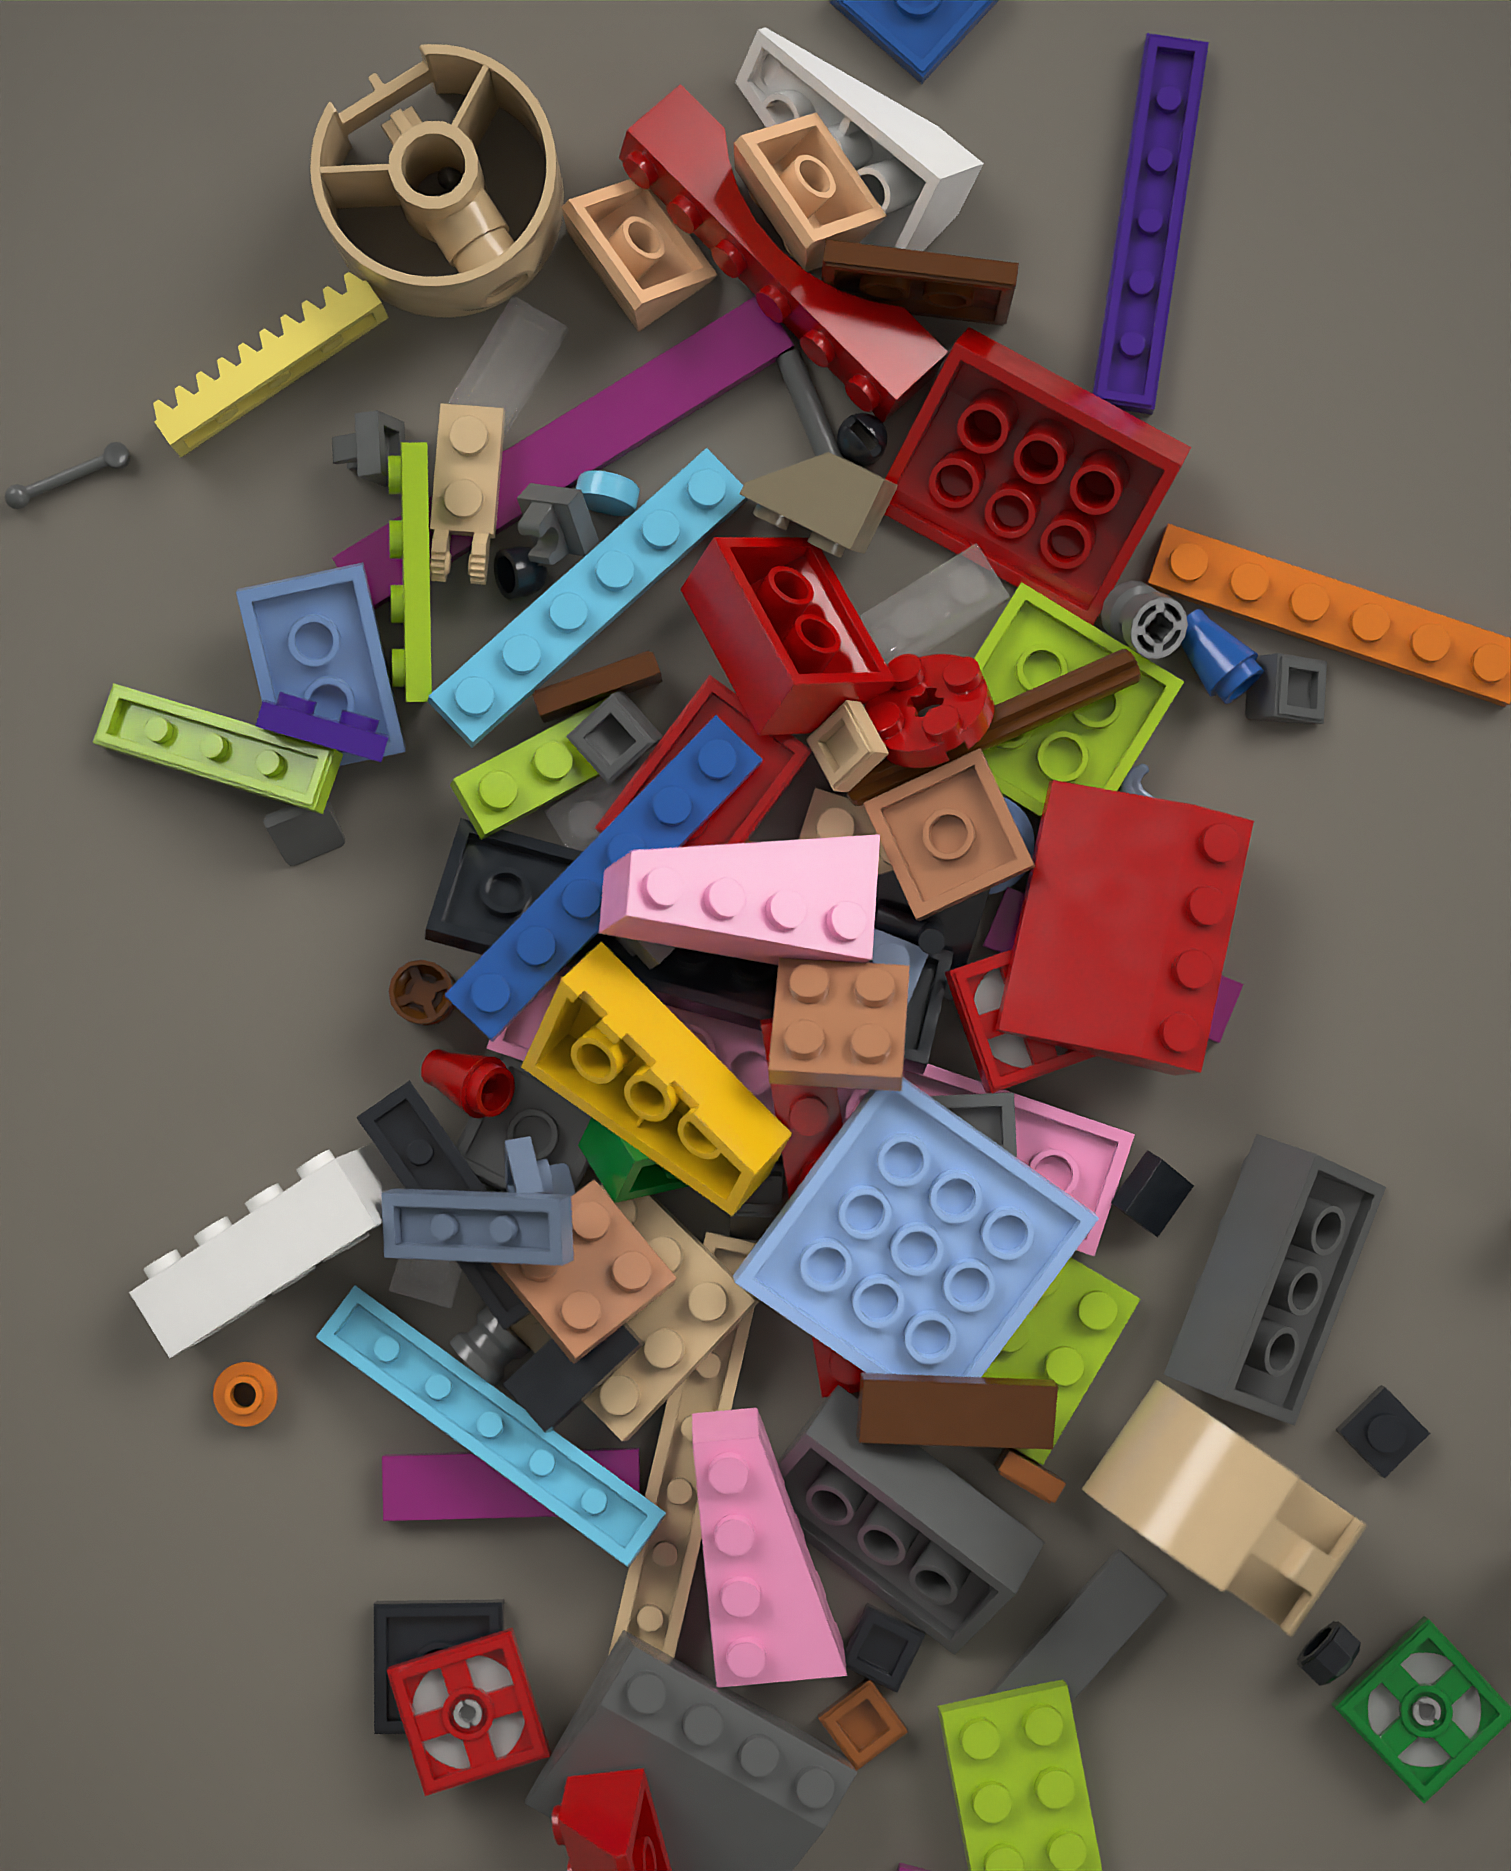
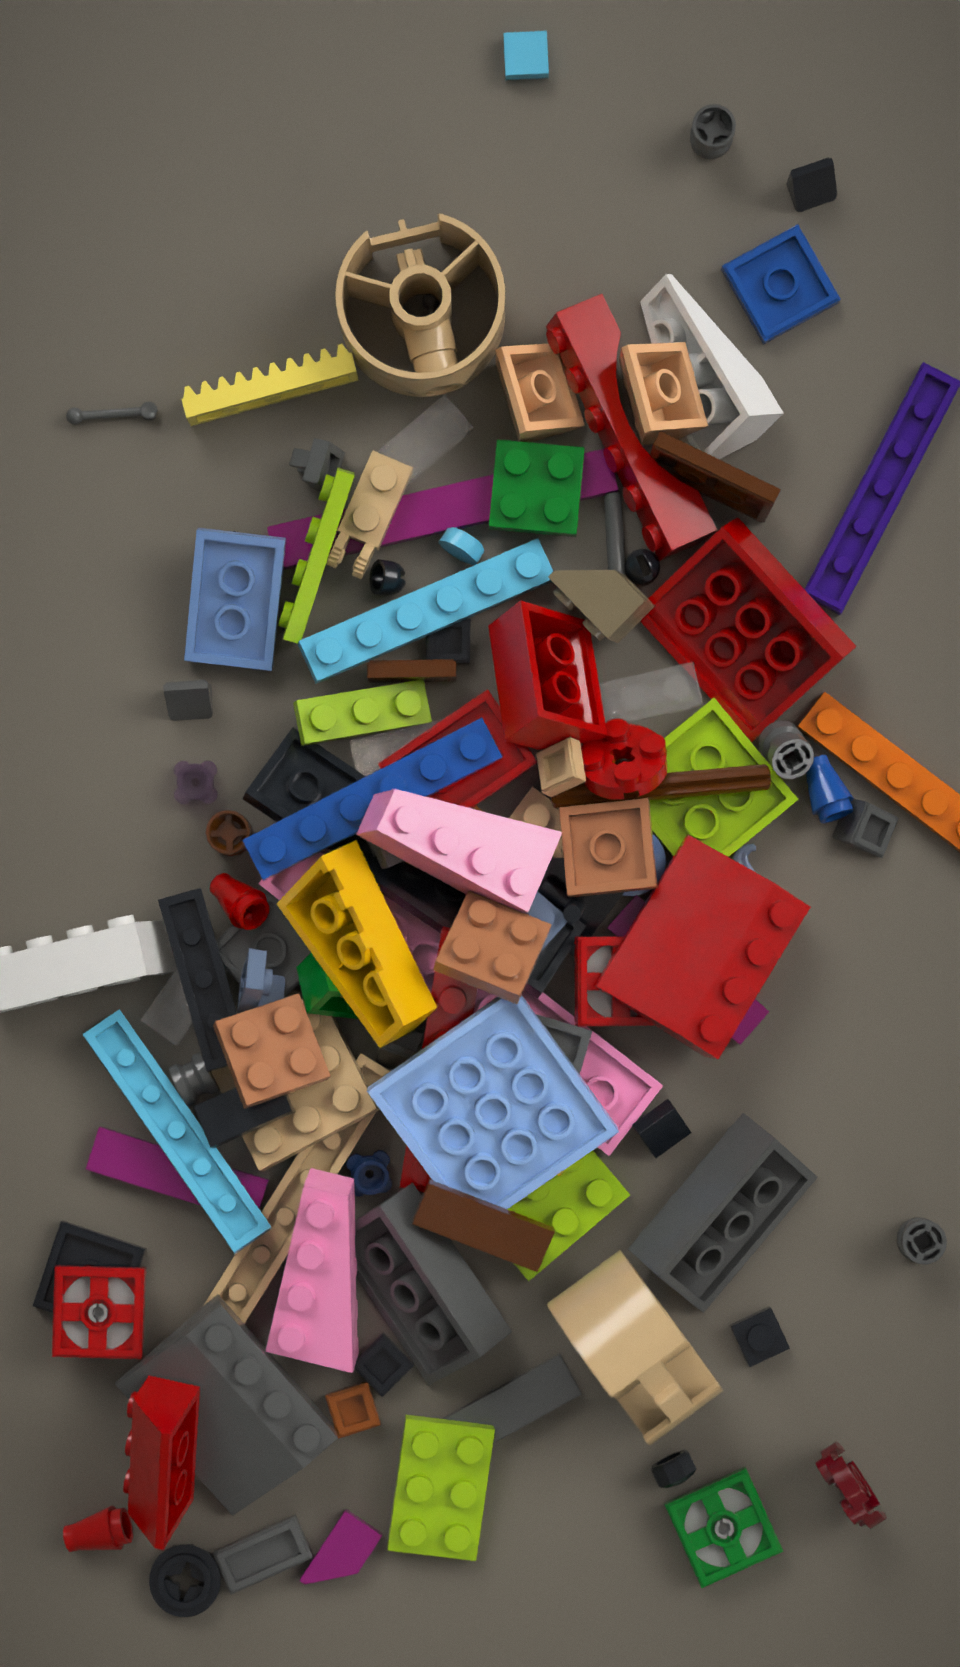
camera: 20 degrees right, 0 degrees up
(218, 748) = (150, 627): lime tile -> none
(264, 1386) = (37, 1060): orange plate -> none
(296, 718) = (208, 627): dark purple plate -> none
(336, 933) = (204, 791): none -> clear purple plate
(477, 1226) = (212, 998): sand blue plate -> none
(556, 522) = (421, 554): dark grey tile -> none
(614, 736) = (412, 708): dark grey slope -> none
(637, 631) = (450, 643): none -> black tile
(682, 380) = (536, 488): none -> green plate
(792, 1396) = (378, 1182): none -> dark blue plate
(1029, 1475) = (517, 1284): dark orange tile -> none

